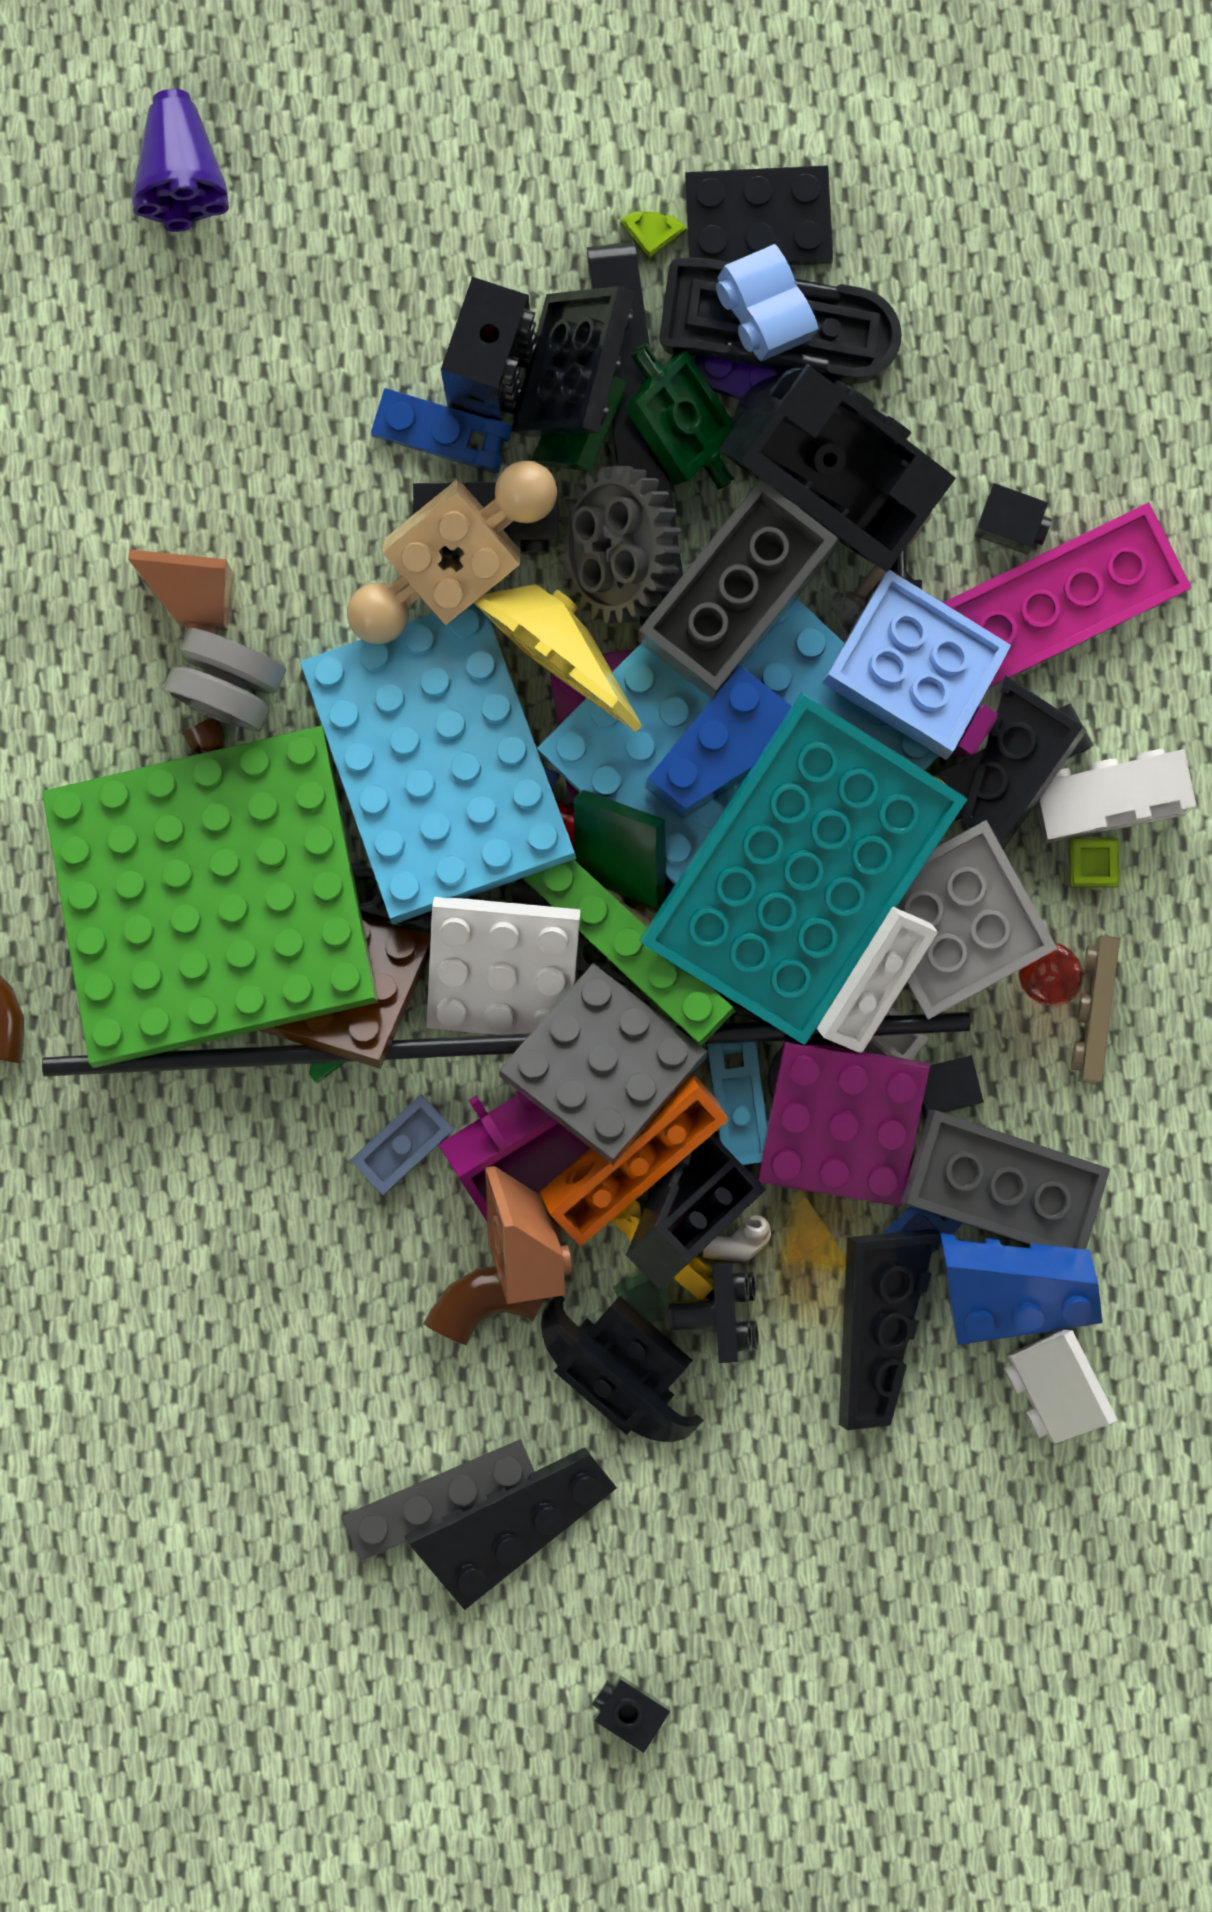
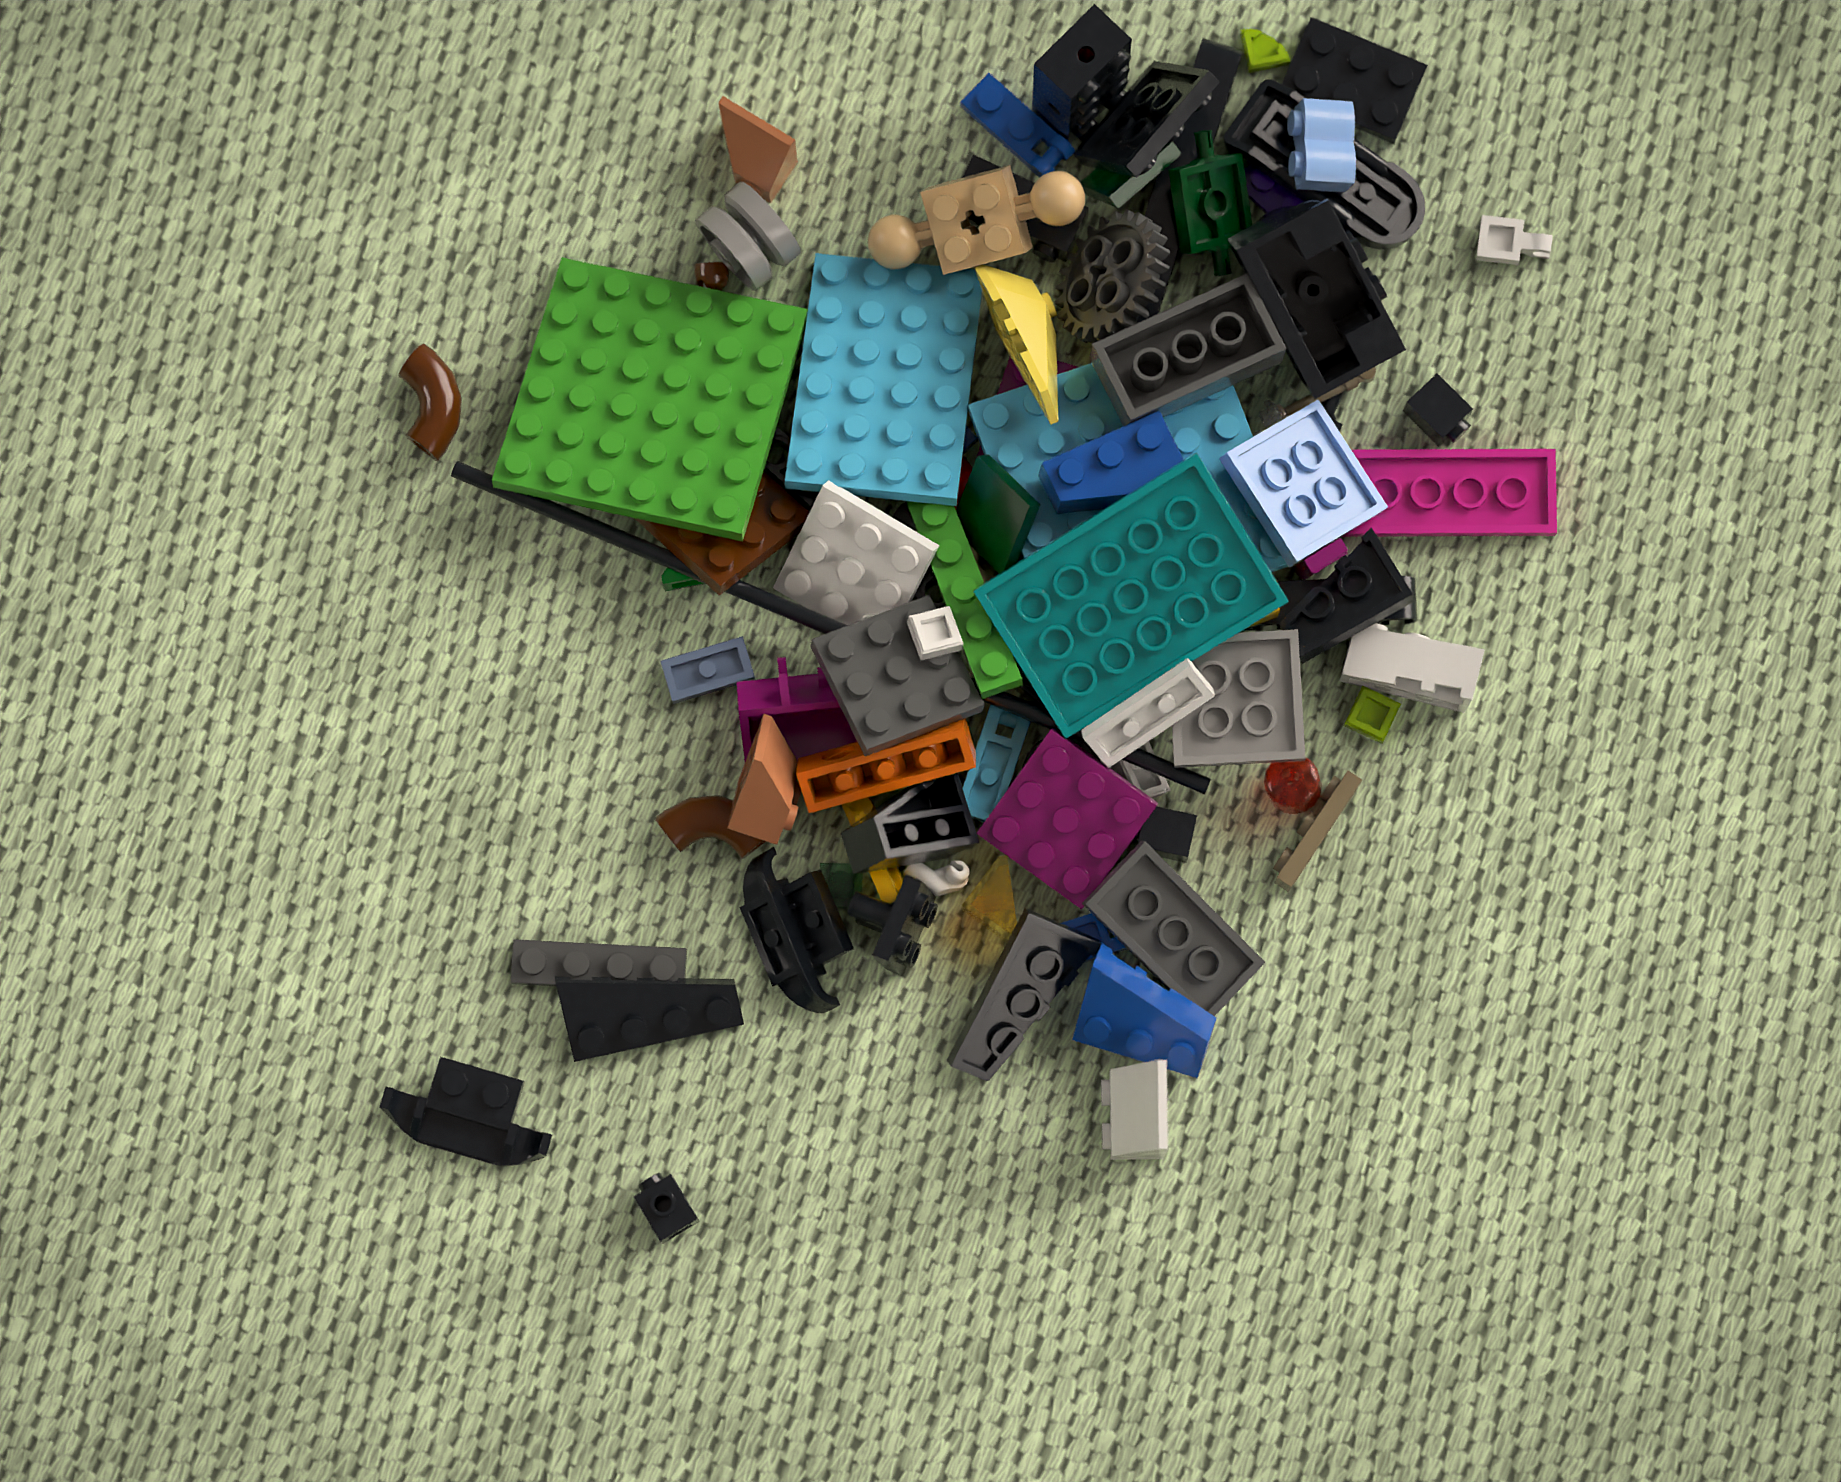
camera: 30 degrees right, 5 degrees down
(385, 1716) = (468, 1115): none -> black plate
(621, 1002) = (935, 633): none -> white tile
(994, 311) = (1503, 241): none -> white plate

